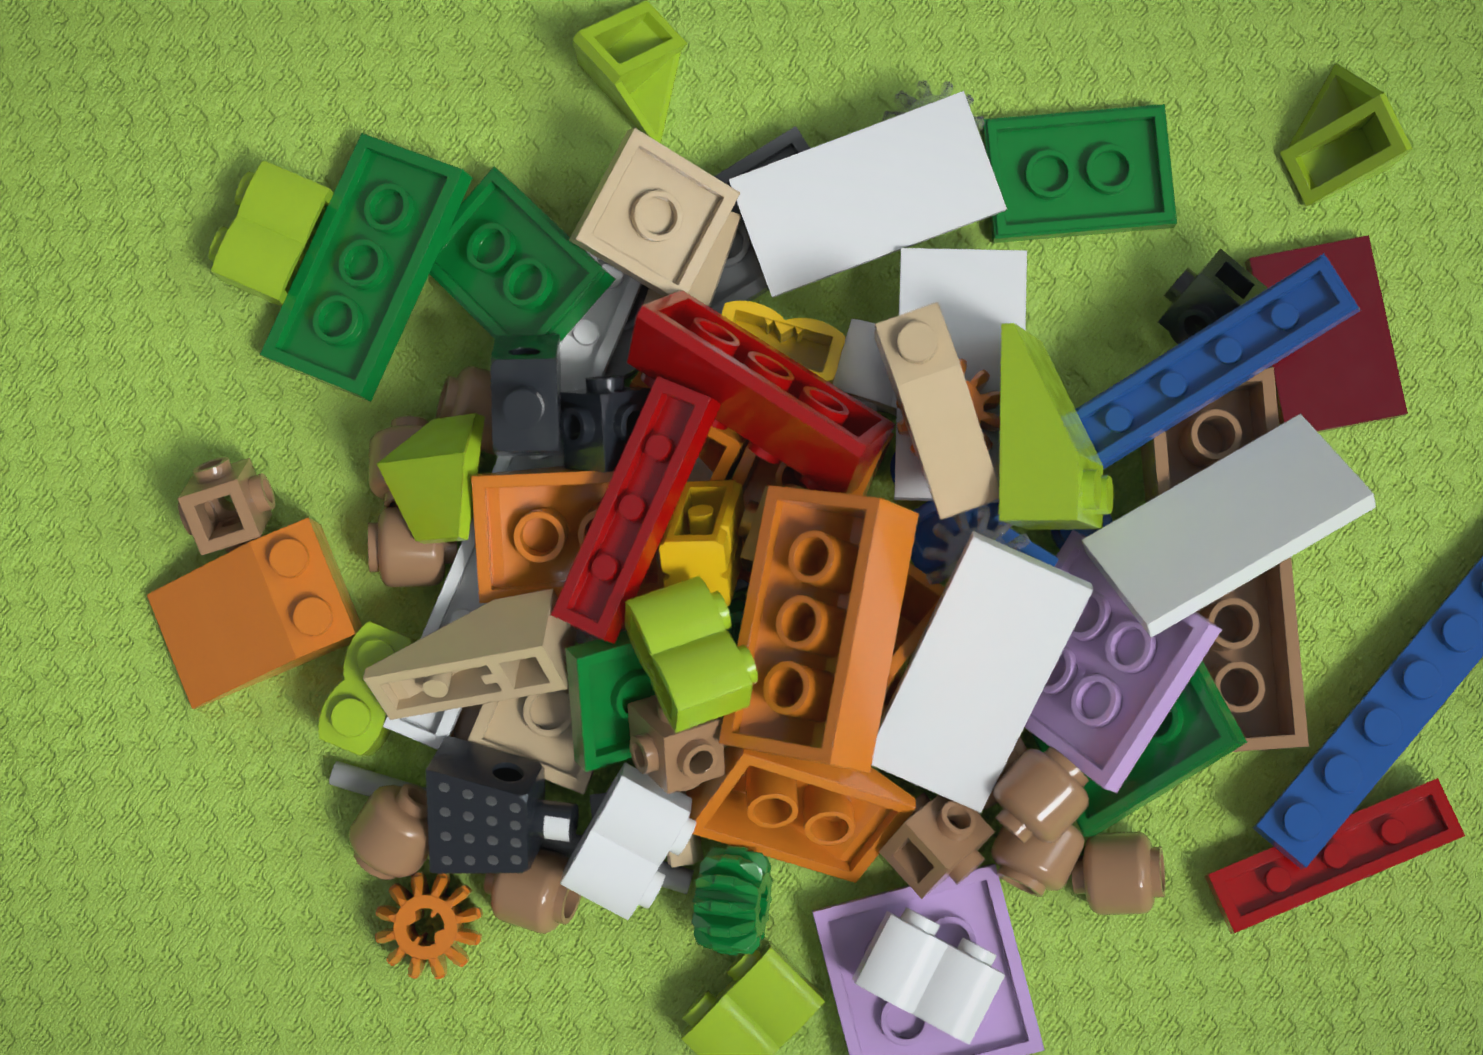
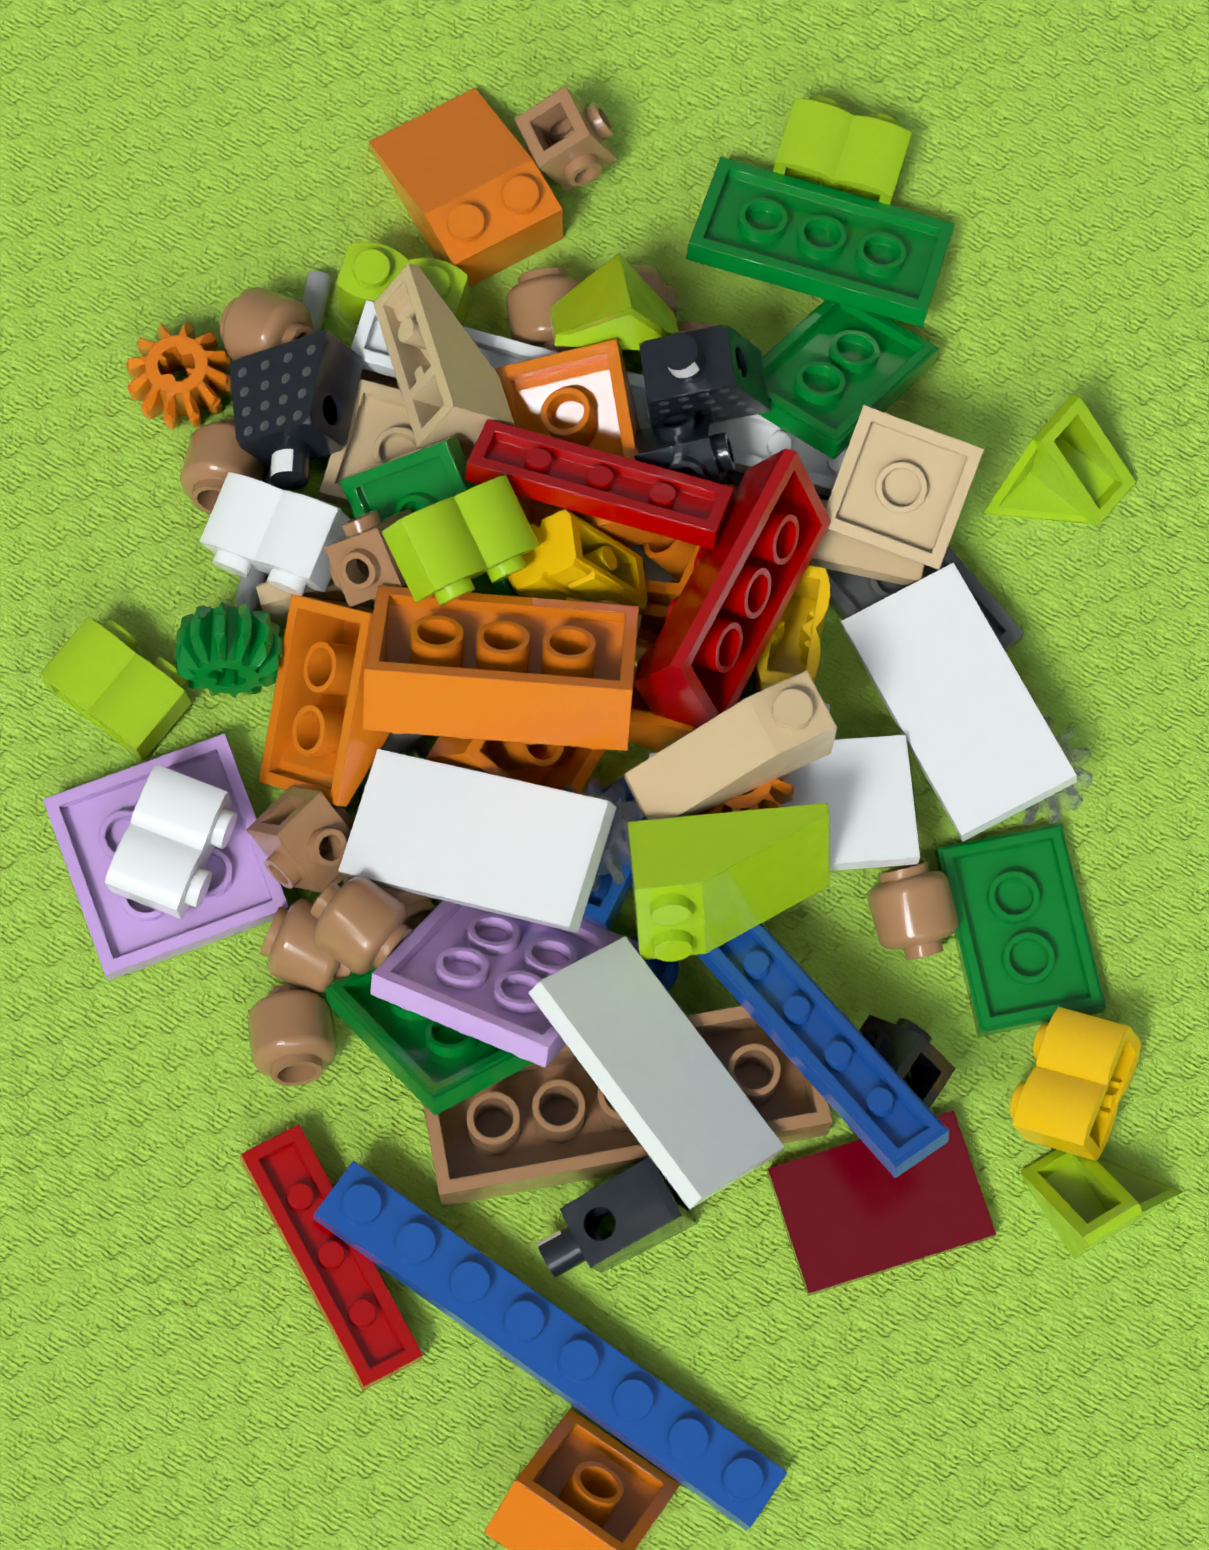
camera: 85 degrees right, 10 degrees down
(1061, 267) = (913, 909): none -> medium nougat head
(1240, 141) = (1075, 1083): none -> yellow brick
(1341, 588) = (644, 1212): none -> black torso

